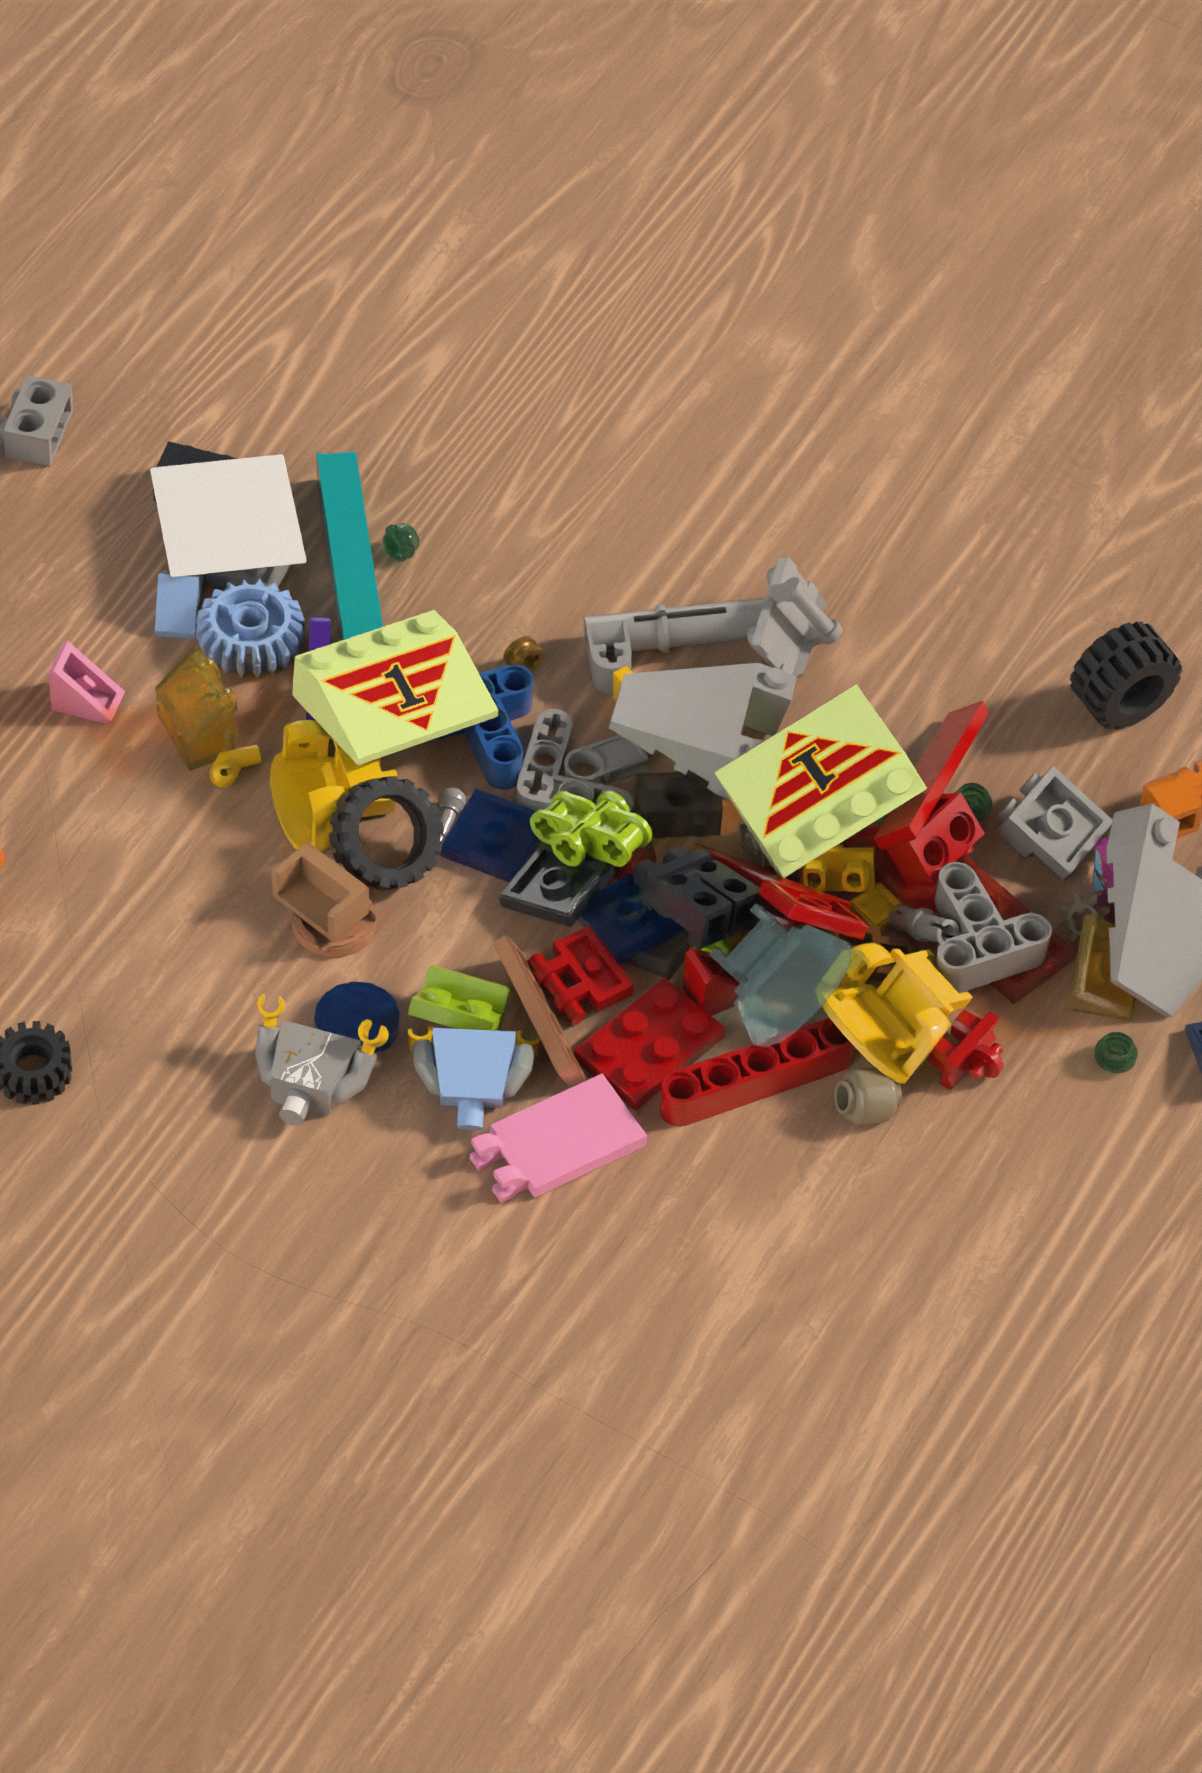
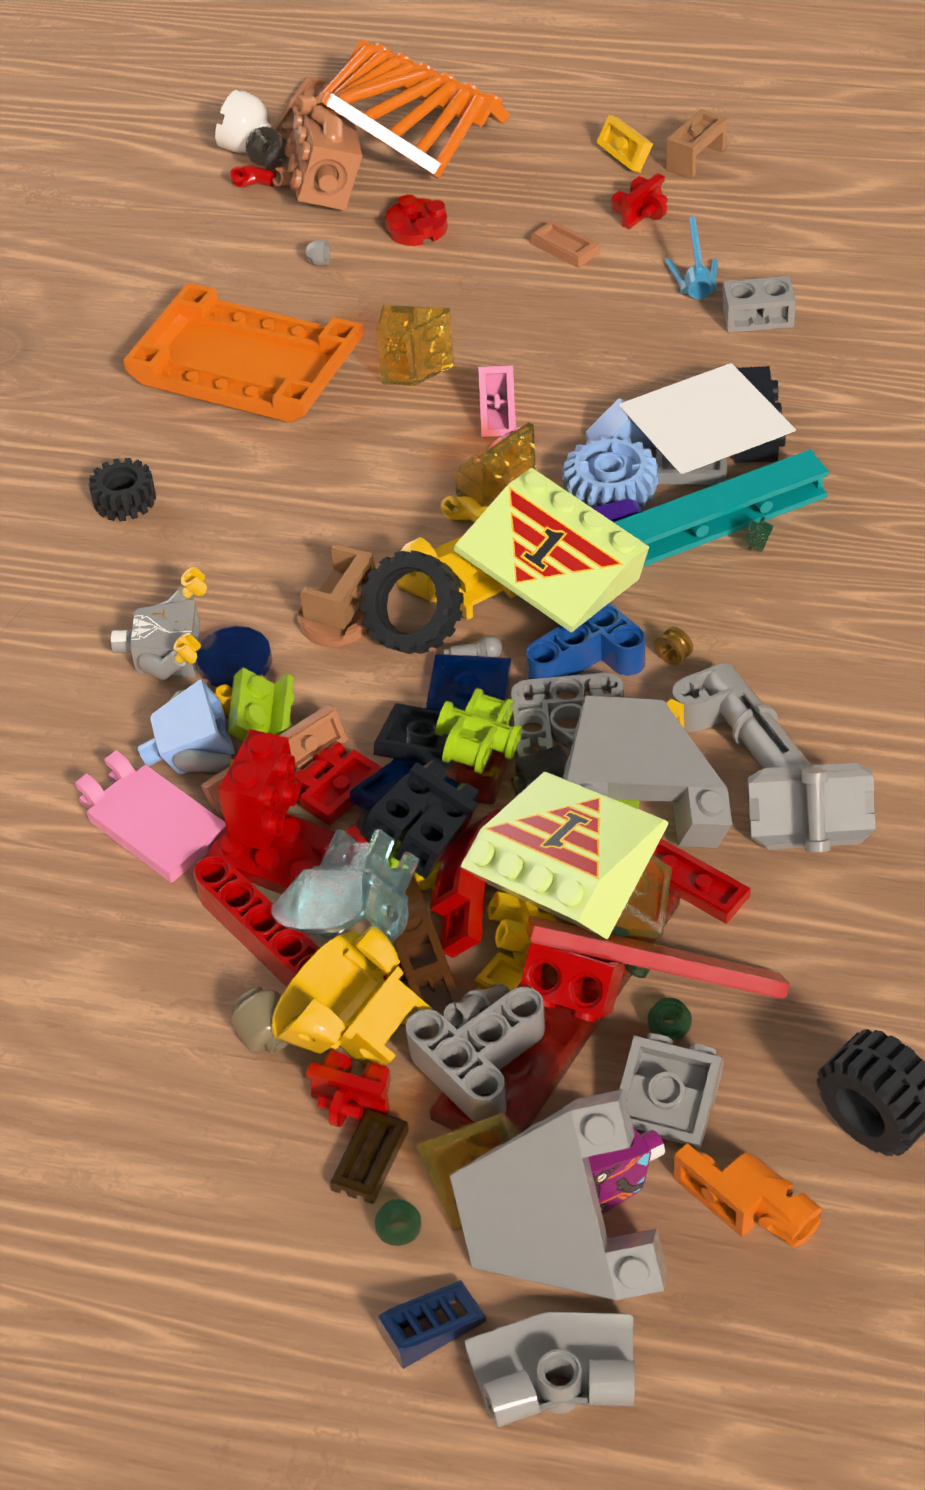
camera: 80 degrees right, 5 degrees down
(615, 1011) = (259, 790): none -> red brick
(813, 909) = (418, 891): red tile -> none
(1032, 1063) = (372, 1188): none -> dark brown tile

